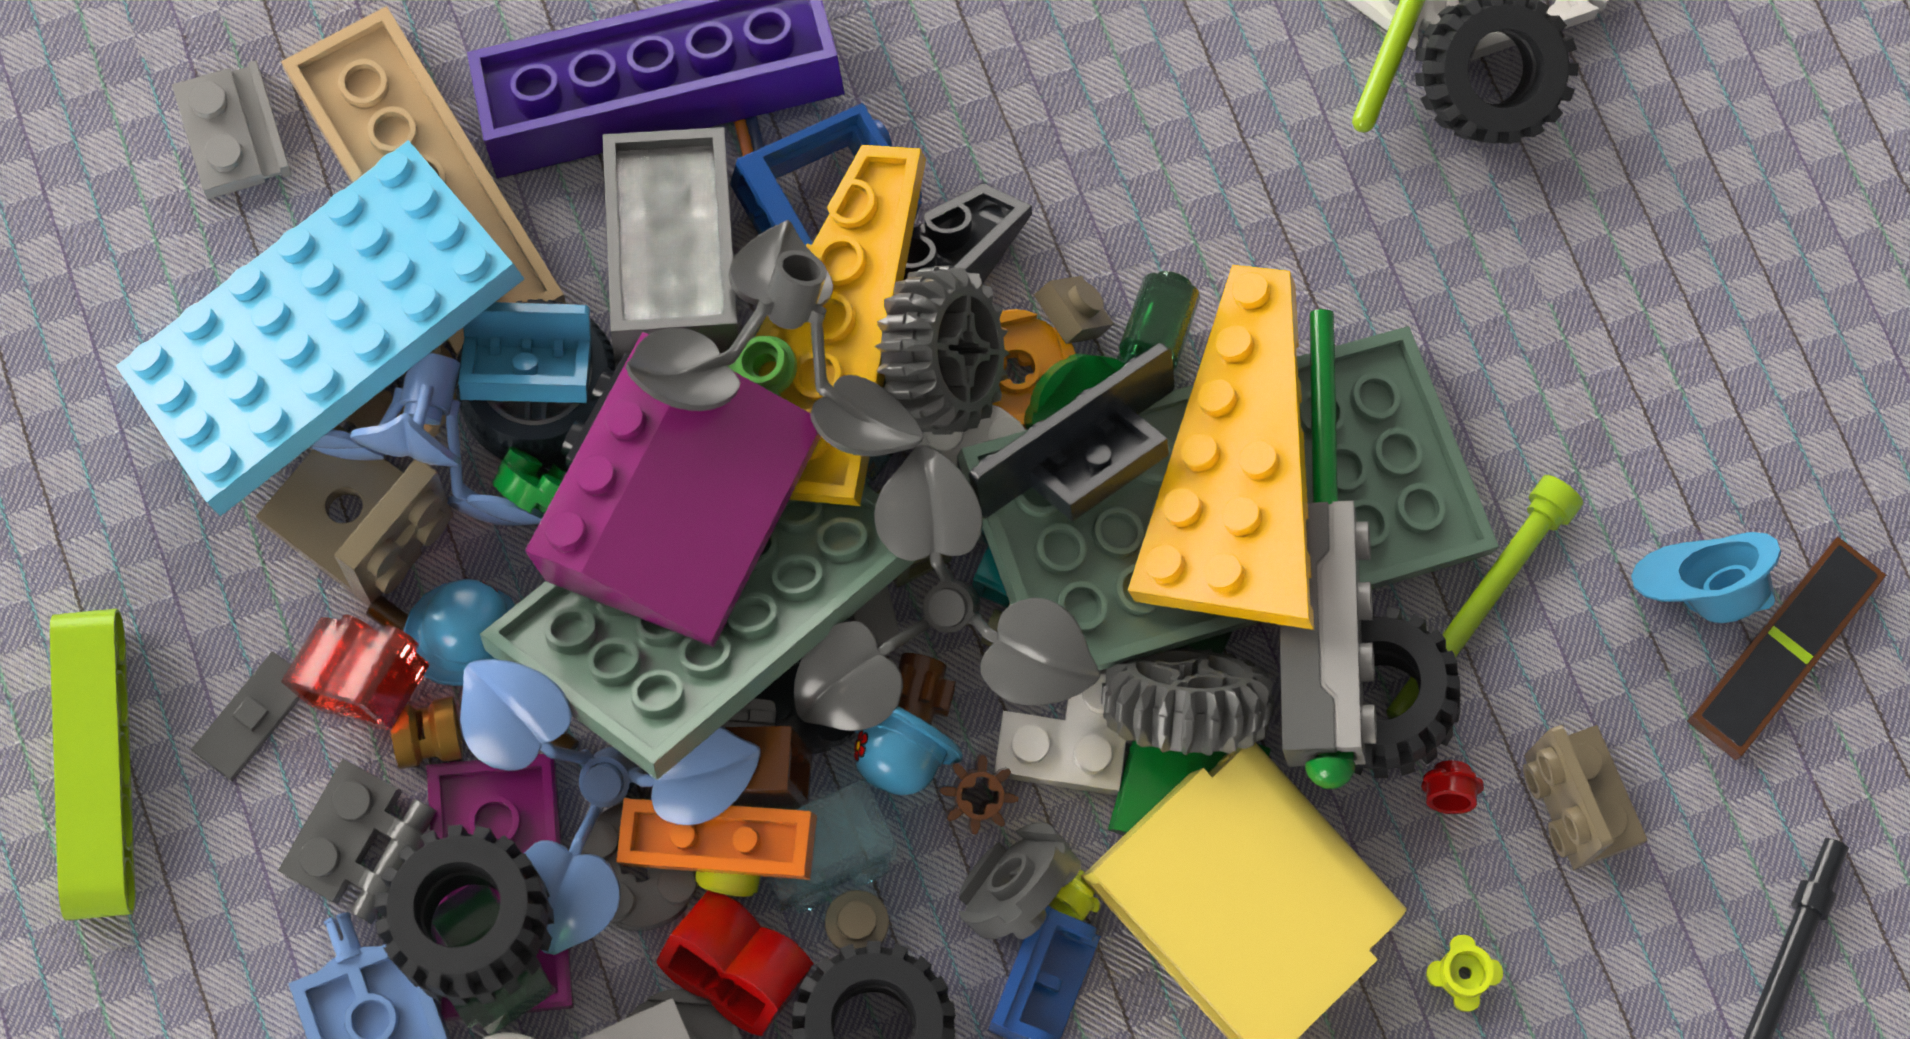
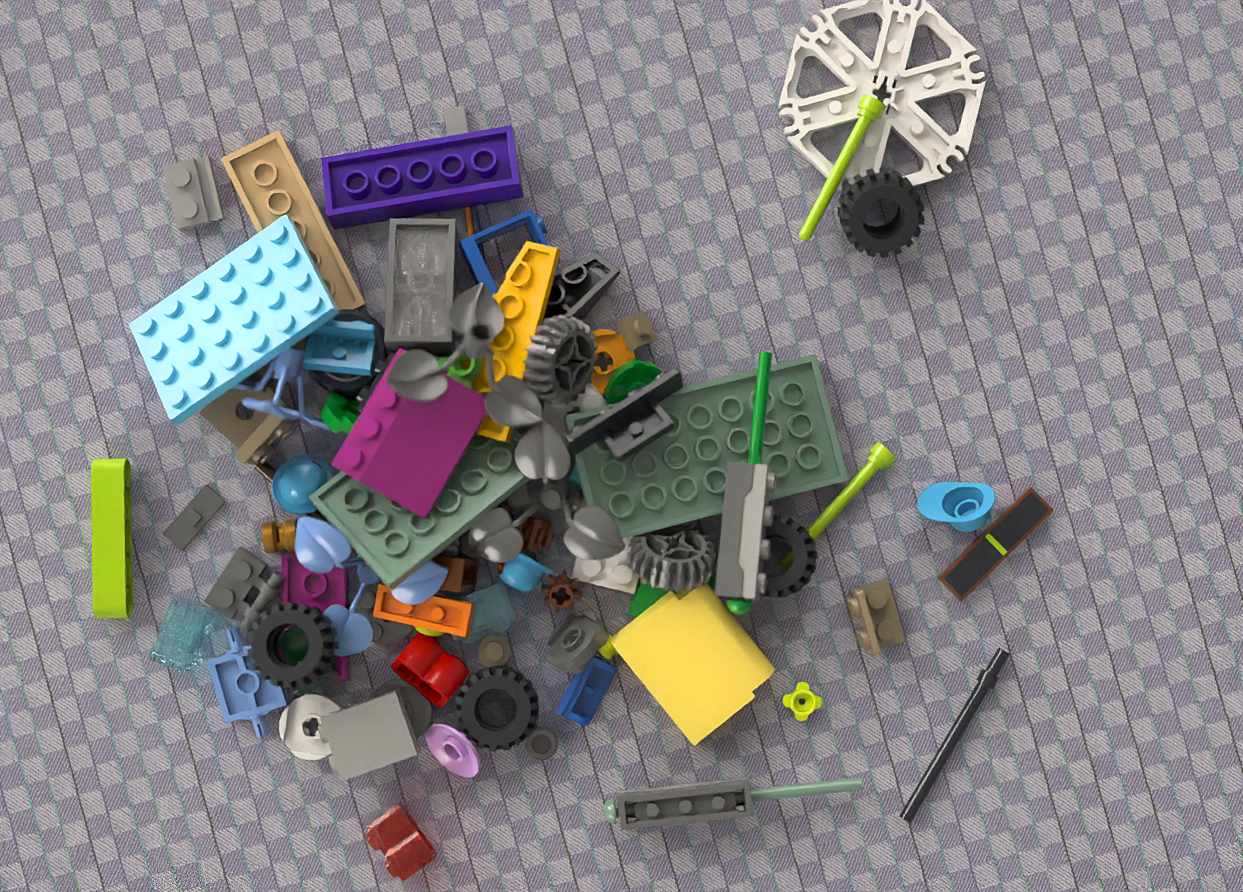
camera: 10 degrees right, 15 degrees up
(239, 937) = (183, 634): none -> clear light blue brick
(357, 671) = (247, 505): clear red brick -> none
(1160, 314) = (678, 349): clear green brick -> none
(1235, 487) = (707, 448): yellow wing -> none
(1452, 787) = (807, 605): red plate -> none

